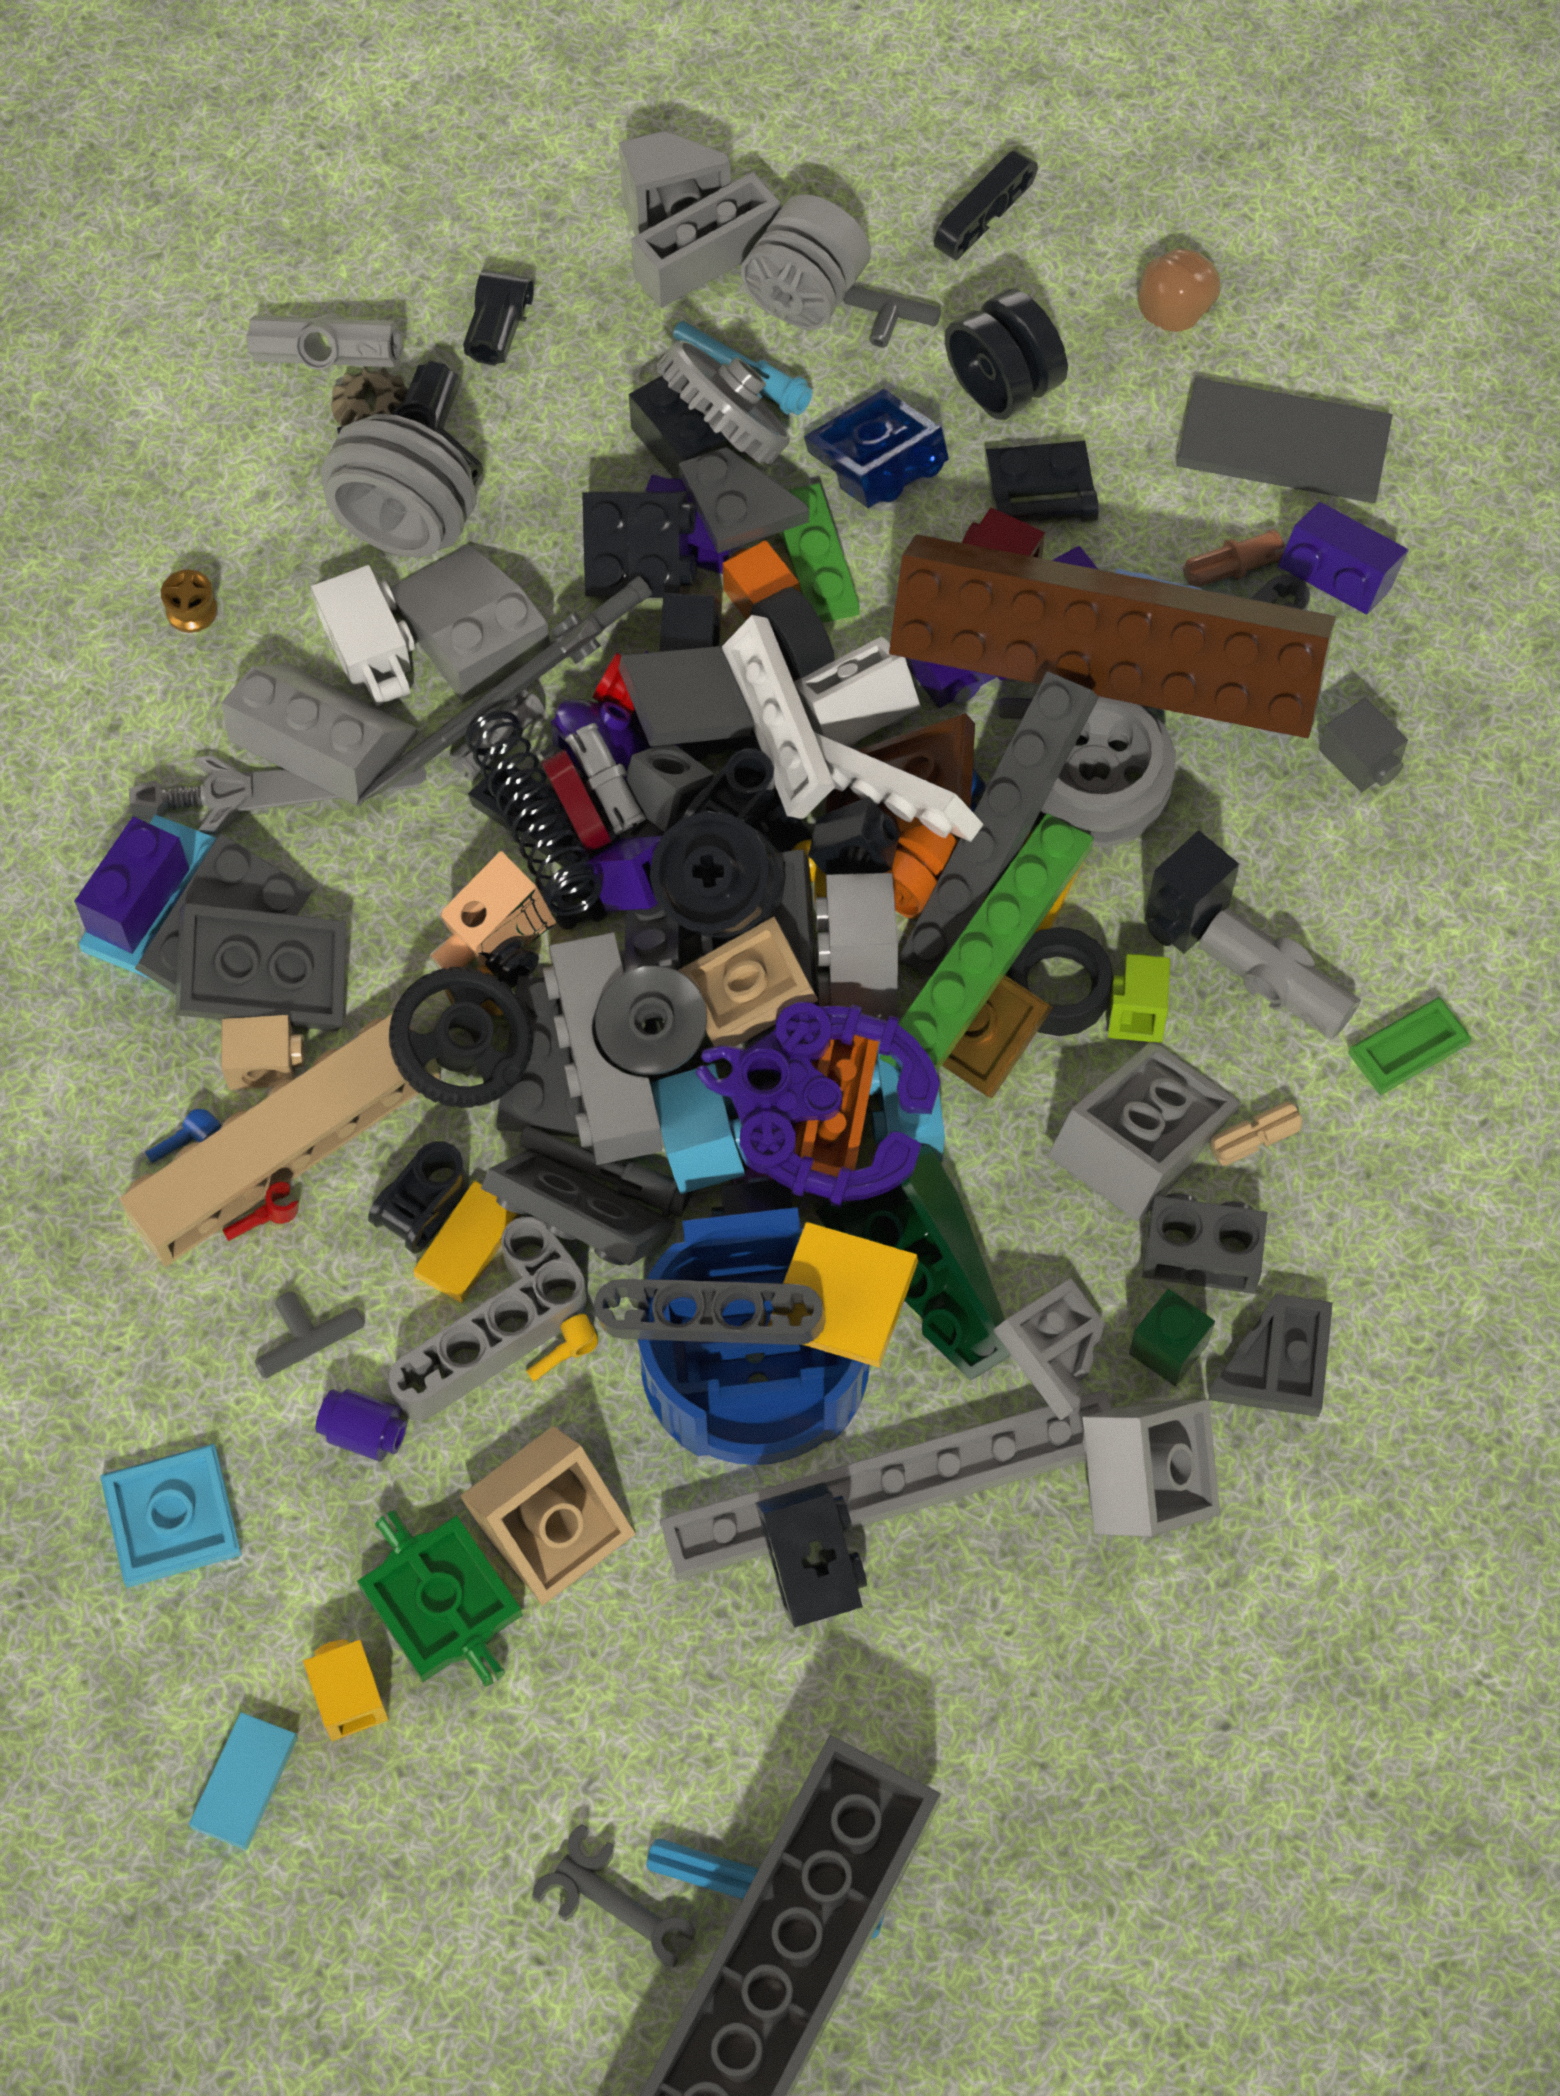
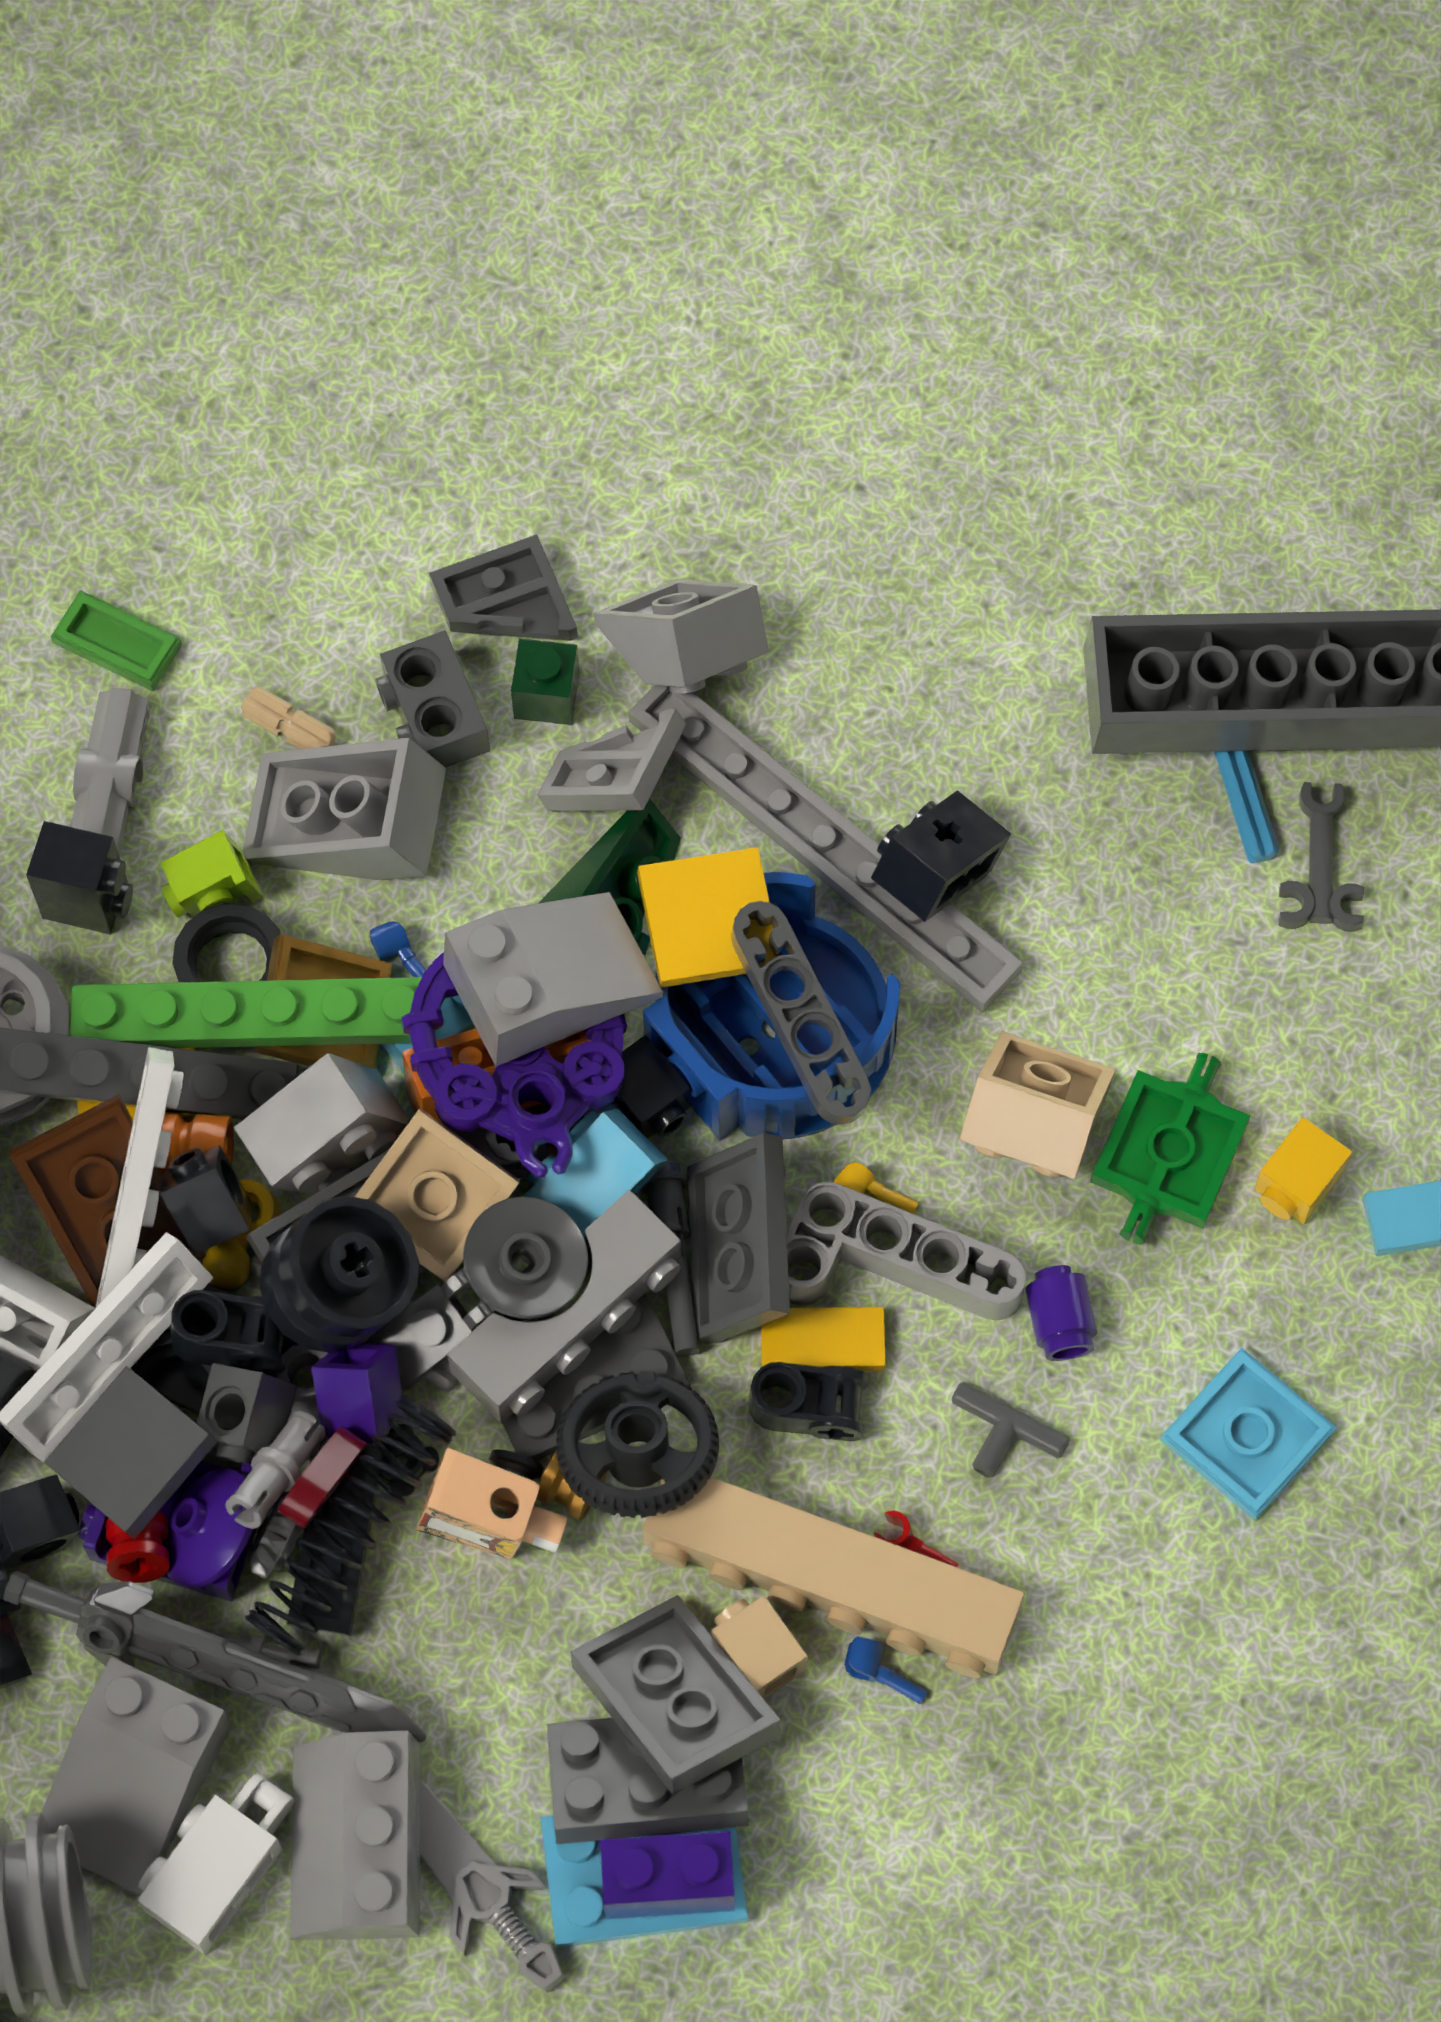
camera: 120 degrees left, 5 degrees up
(865, 1138) = (546, 972): none -> light grey slope
(1010, 1111) = (392, 940): none -> blue hand

